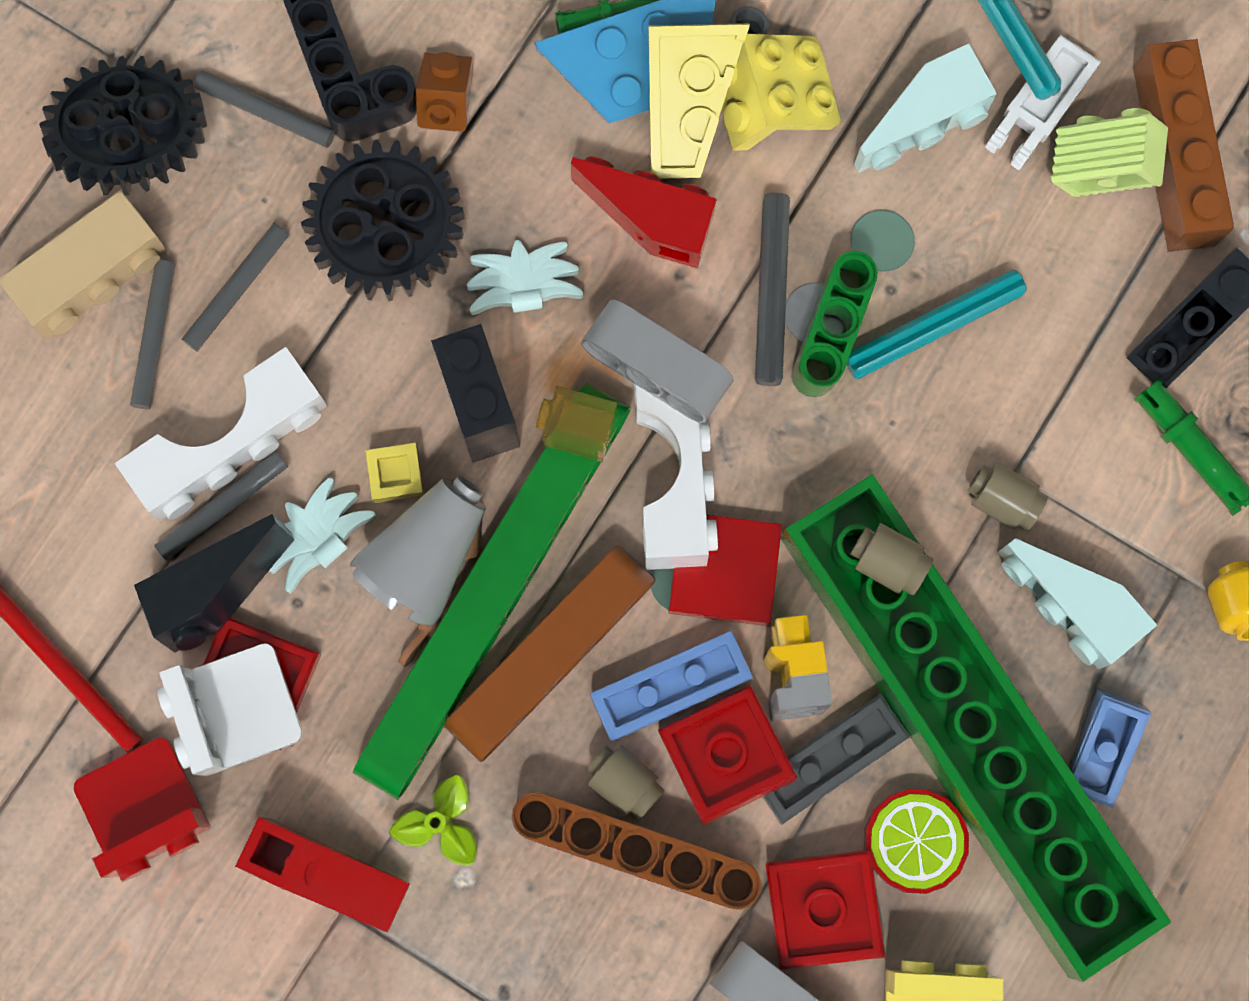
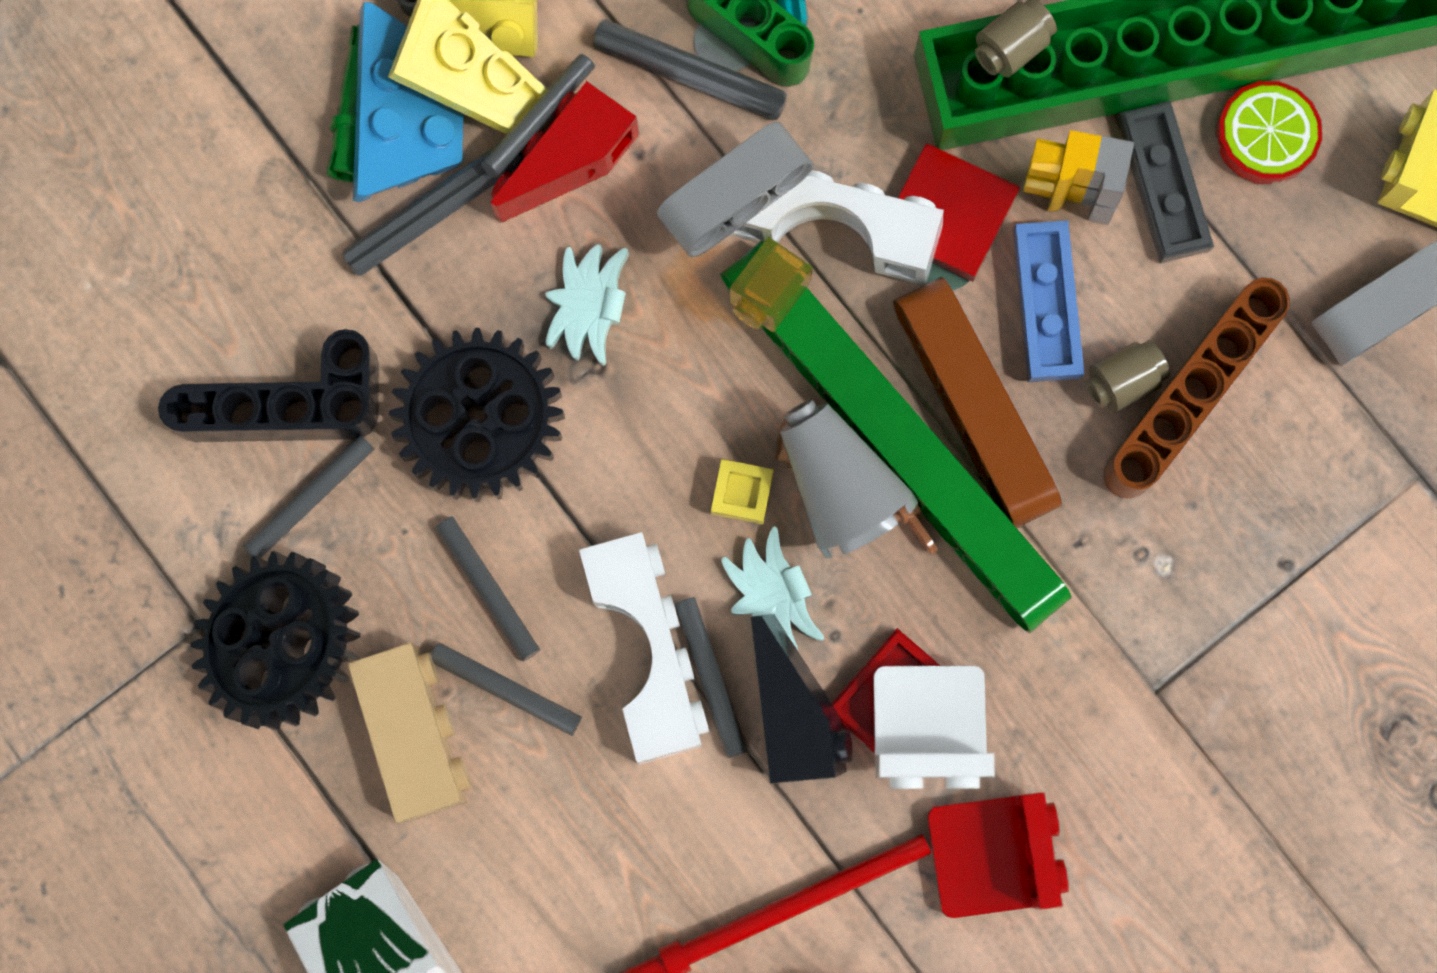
camera: 65 degrees left, 0 degrees up
(322, 874) = (1120, 695): red slope -> none
(443, 91) = (365, 308): dark orange bracket -> none
(456, 841) = (1126, 559): lime plant -> none
(476, 393) = (701, 374): black brick -> none
(559, 114) = (422, 215): none -> dark grey axle
(672, 170) = (537, 116): none -> dark grey bar
(727, 755) = (1132, 272): red tile -> none
(825, 909) = (1307, 234): red tile -> none

